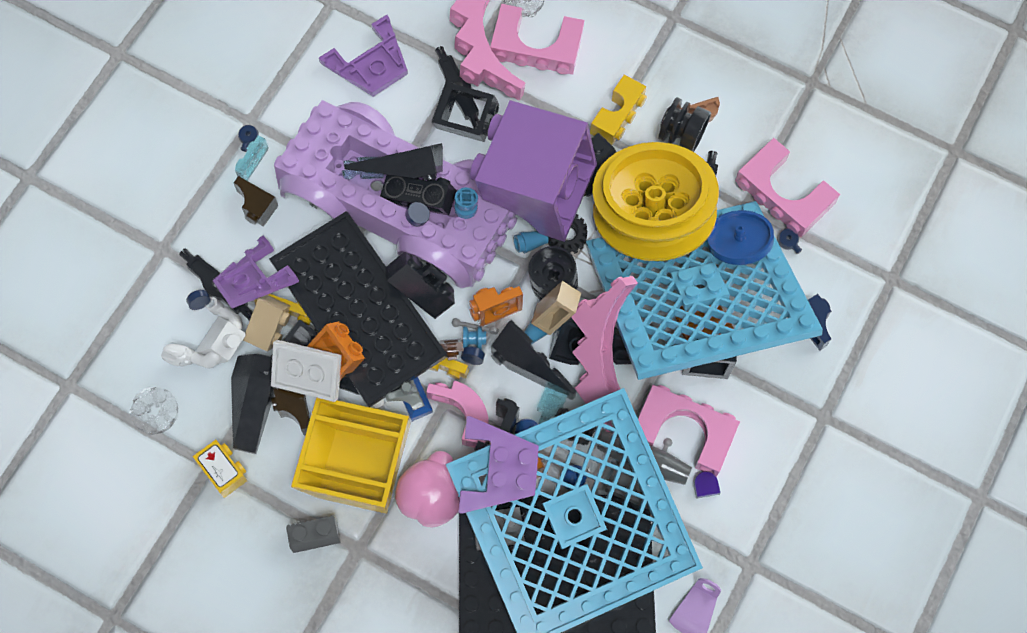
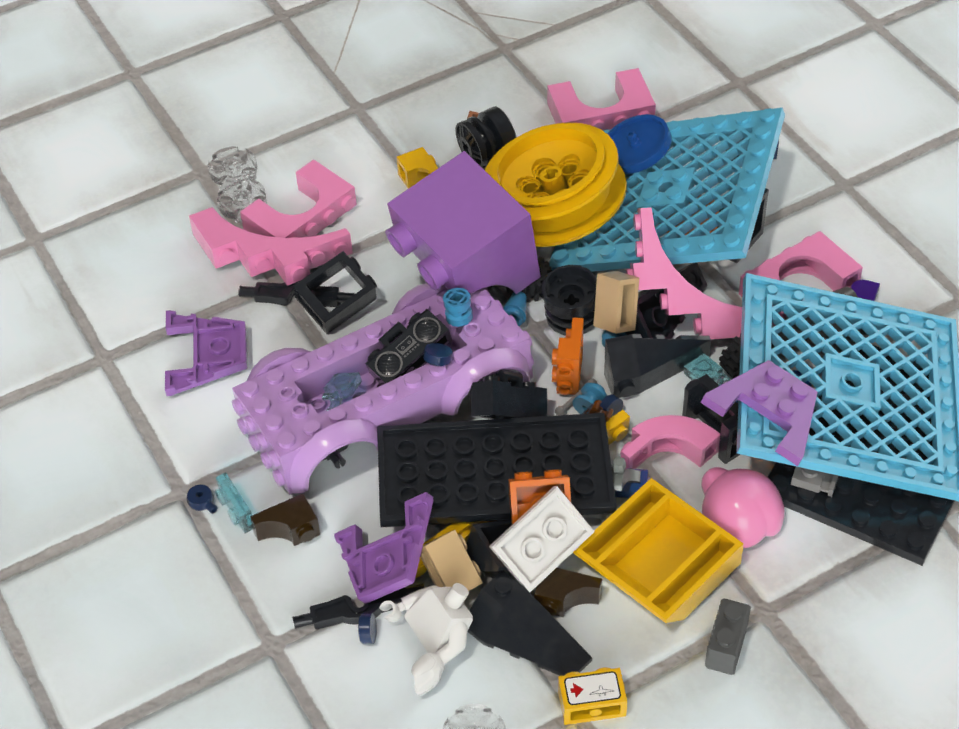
camera: 55 degrees left, 20 degrees down
(413, 163) = (382, 321): black wedge -> none

